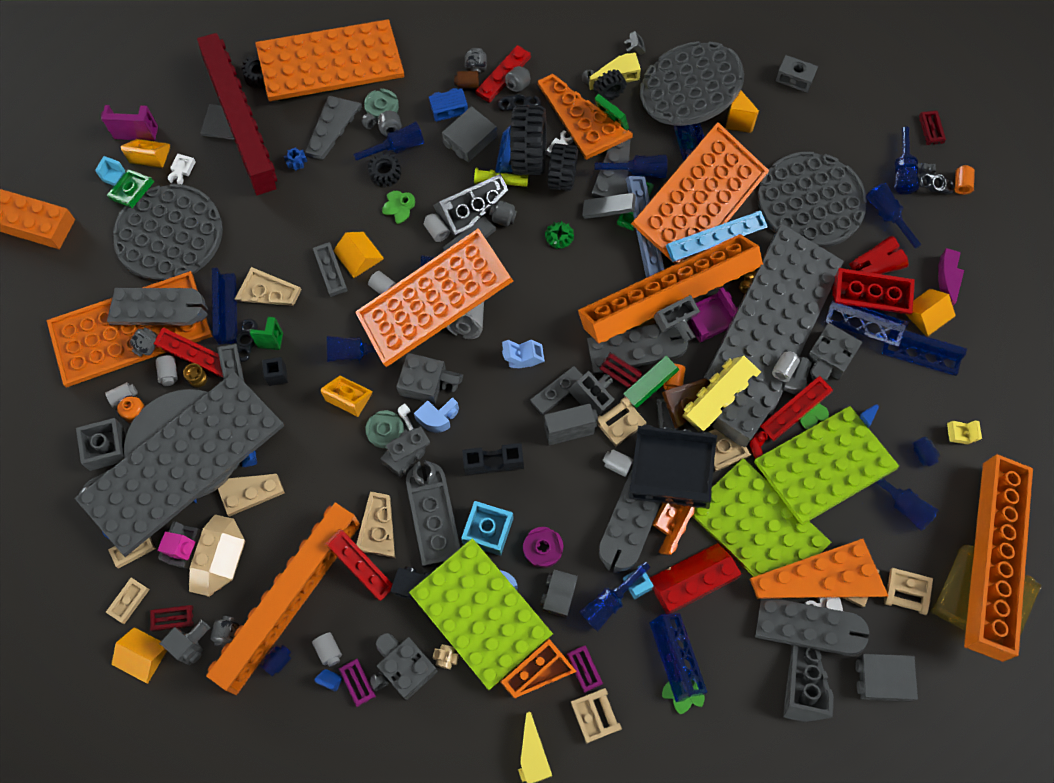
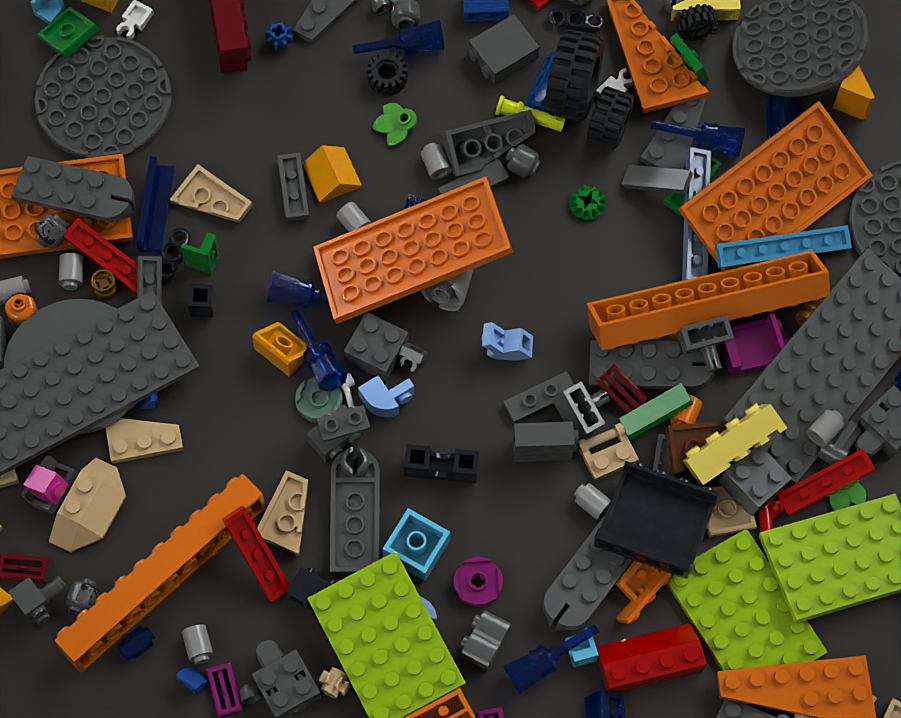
camera: 10 degrees right, 0 degrees up
(379, 397) = (320, 358): none -> clear blue piece

